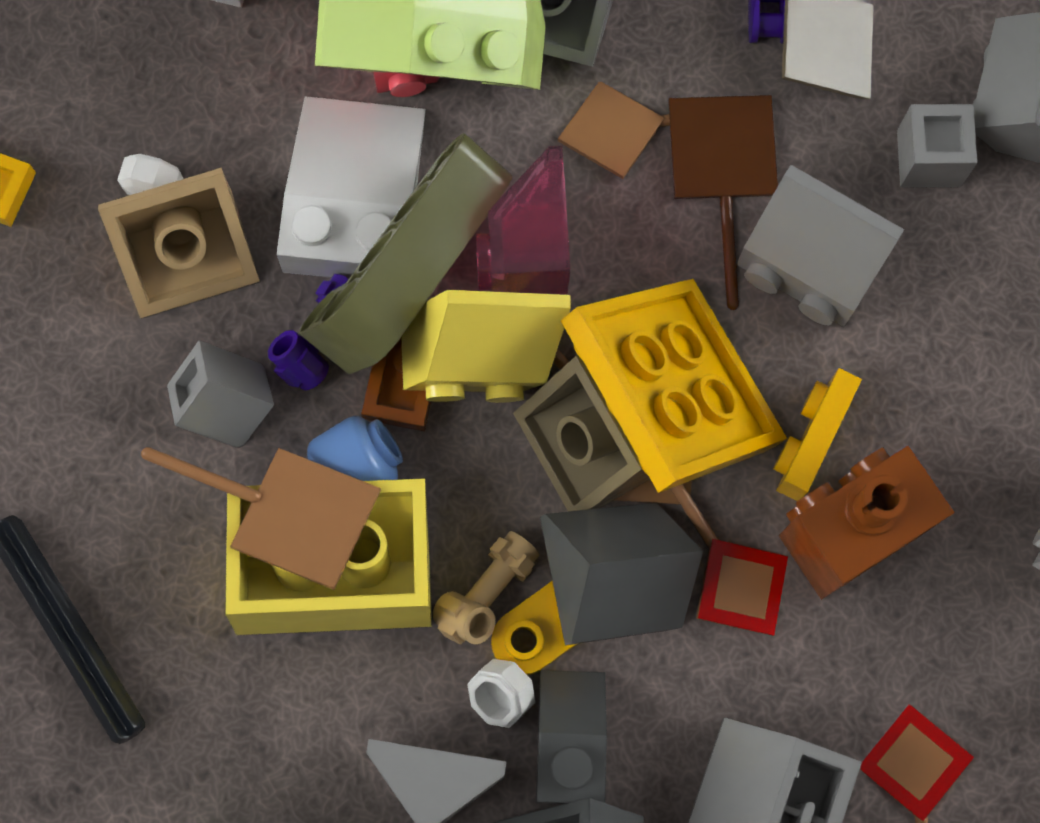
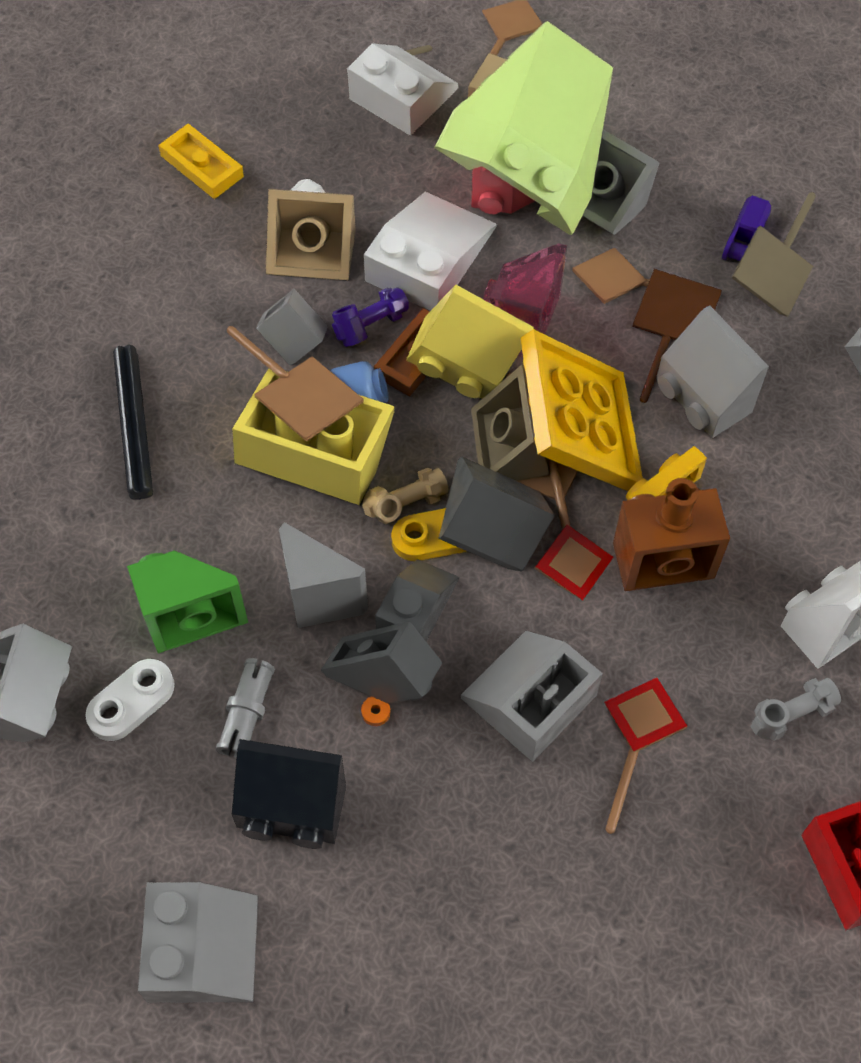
camera: 25 degrees right, 15 degrees down
(410, 258) = (419, 286): olive beam -> none
(501, 693) = (384, 557): white tile -> none
(936, 145) = (818, 349): light grey panel -> none

